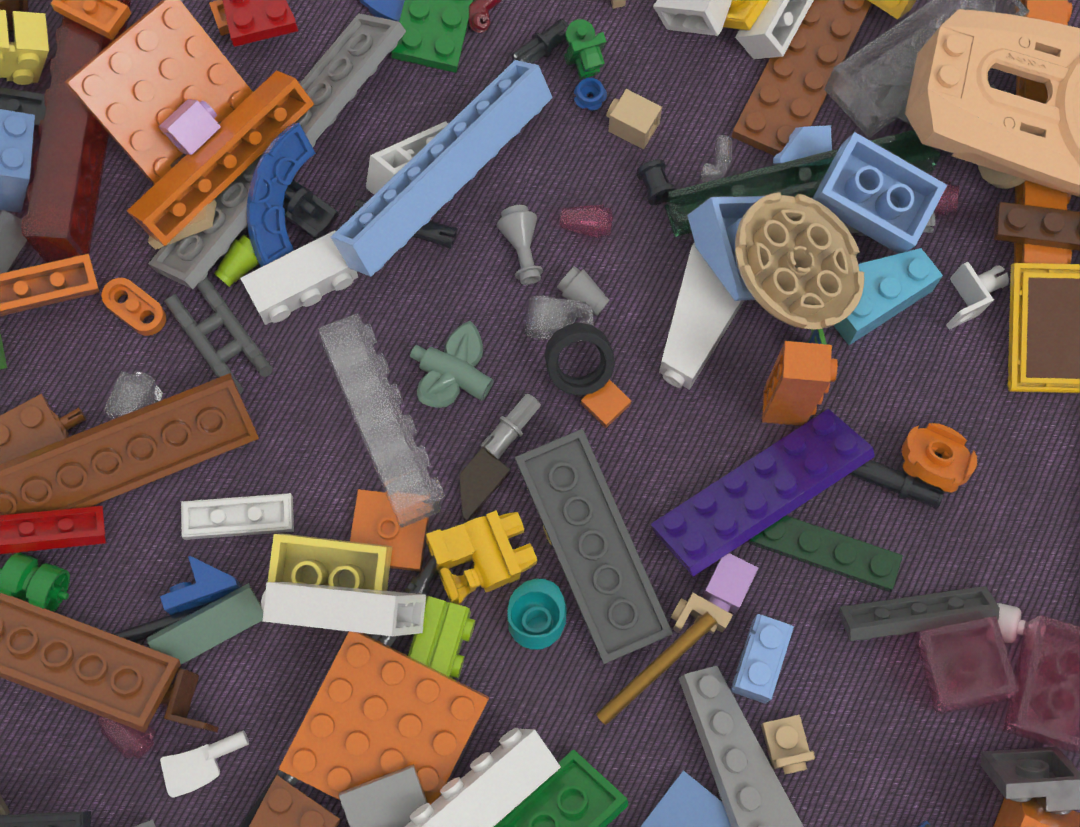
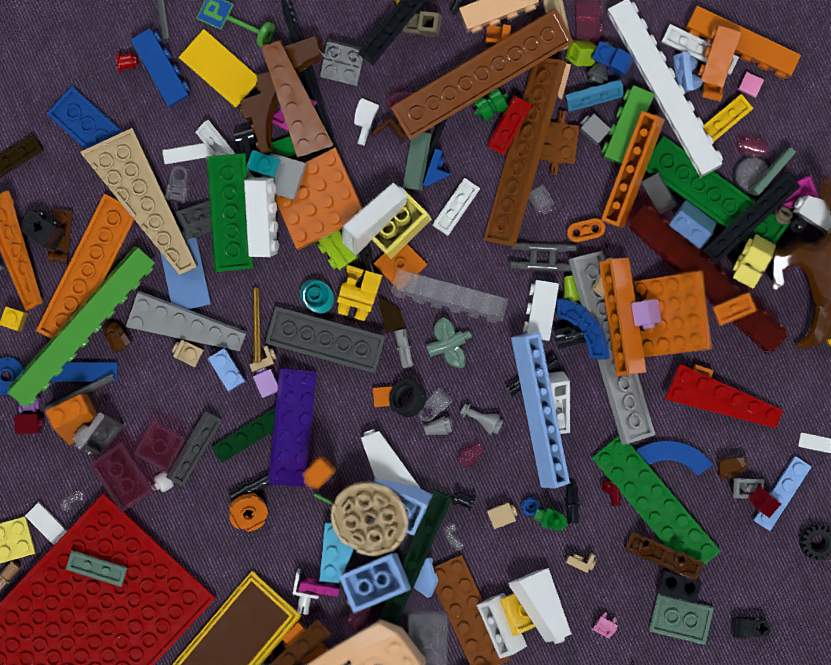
camera: 130 degrees right, 15 degrees up
(955, 285) = (311, 584): none -> dark pink wing

